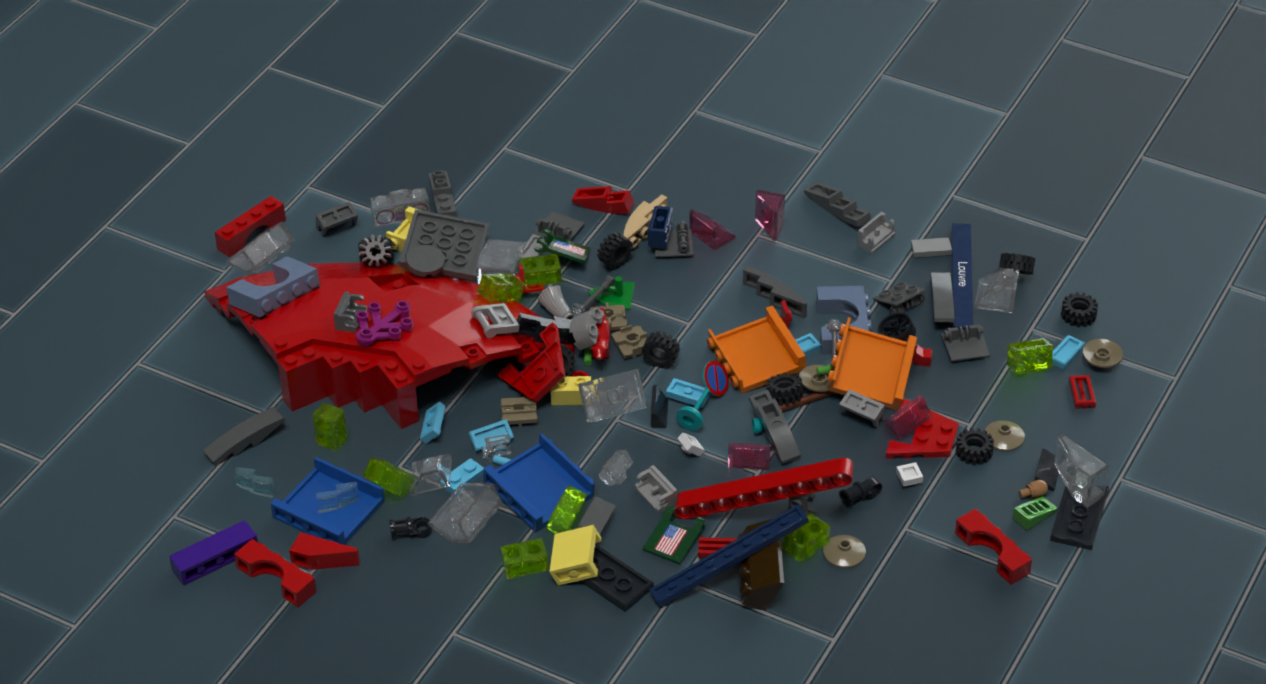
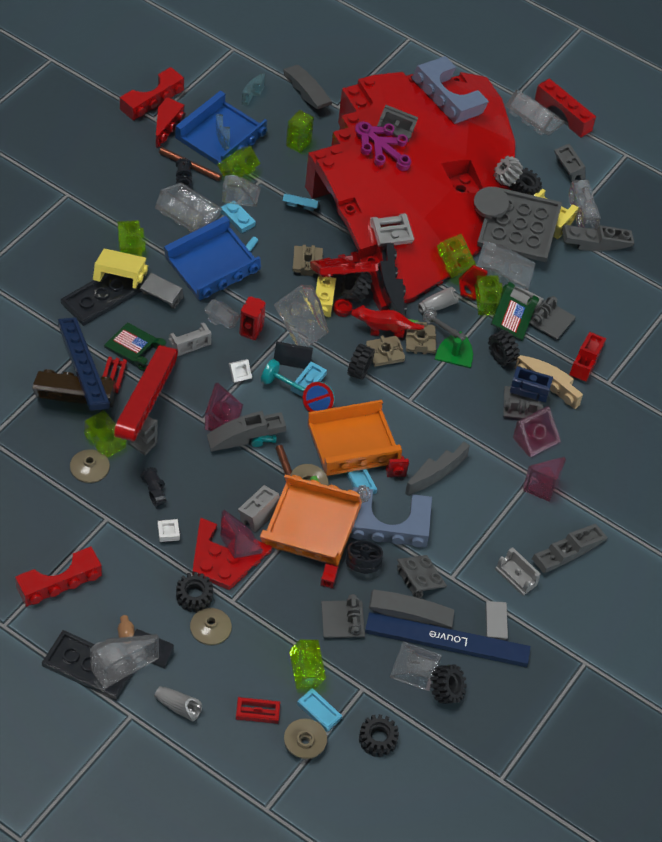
camera: 90 degrees right, 10 degrees up
(210, 553) = (182, 61): dark purple brick -> none
(385, 528) = (195, 166): none -> copper bar
(496, 429) = (279, 237): medium azure tile -> none
(497, 446) = (262, 234): clear bracket -> none
(566, 510) = (171, 269): clear neon green brick -> none
(585, 328) = (389, 298): light grey cylinder -> none
(624, 433) = (252, 318): none -> red brick
(785, 388) = (300, 442): black tyre -> none
(1028, 521) = (92, 612): bright green slope -> none
(1100, 438) = (179, 702): none -> light grey piece

